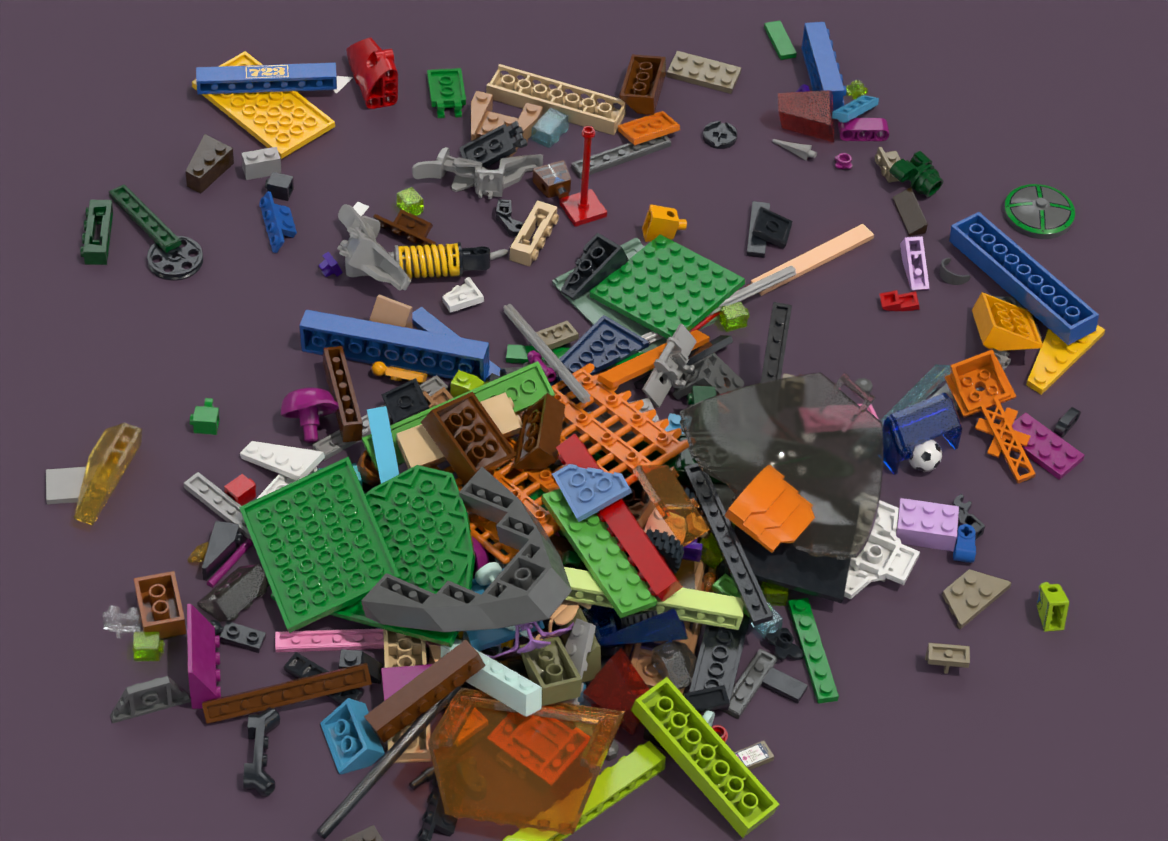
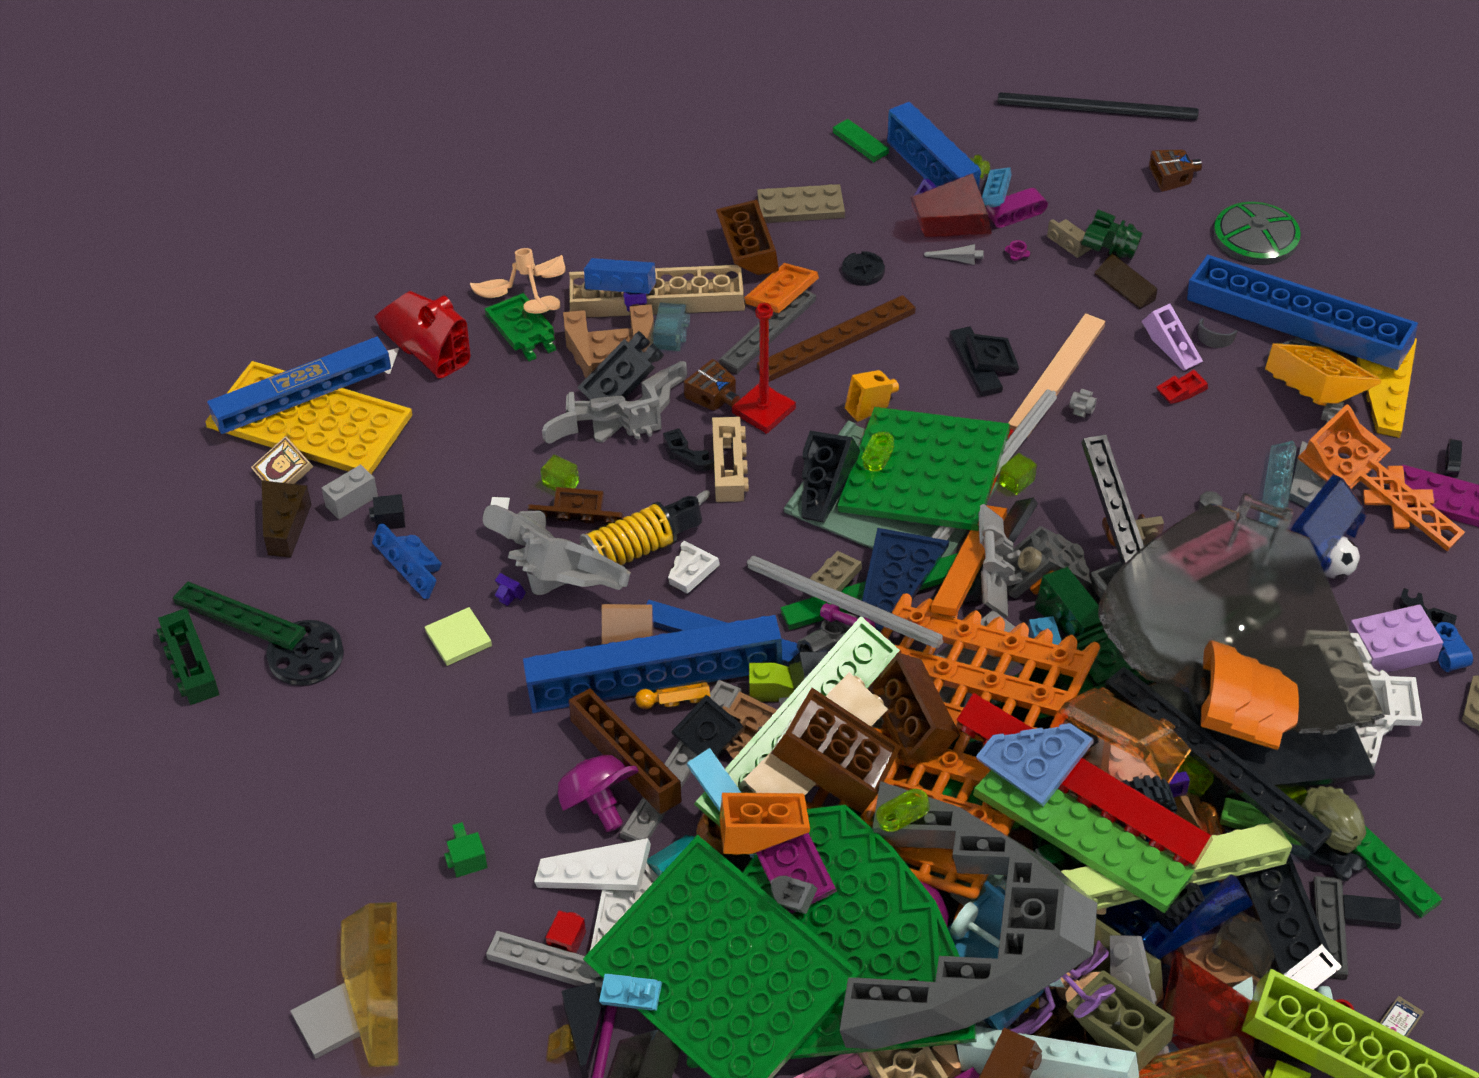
camera: 20 degrees left, 0 degrees up
(227, 128) = (282, 463): none -> tile
(256, 536) = (630, 992): none -> medium azure plate
(280, 284) = (458, 636): none -> yellowish green tile
(383, 511) = (793, 893): none -> dark grey plate
(390, 461) = (761, 820): none -> orange slope
(398, 499) = (800, 861): none -> magenta tile
(468, 46) = (525, 266): none -> light nougat plant
(481, 487) = (901, 810): none -> clear neon green plate
(529, 78) = (620, 275): none -> blue brick
(533, 96) = (634, 298): none -> dark purple tile
(637, 264) = (878, 451): none -> clear neon green plate
(667, 177) = (839, 336): none -> reddish brown plate
(693, 373) = (1029, 559): none -> dark tan tile
(792, 612) = (1339, 815): none -> olive piece
(814, 285) = (1083, 403): none -> light grey gear
(983, 75) = (1098, 106): none -> black axle
(1006, 141) = (1172, 168): none -> reddish brown torso

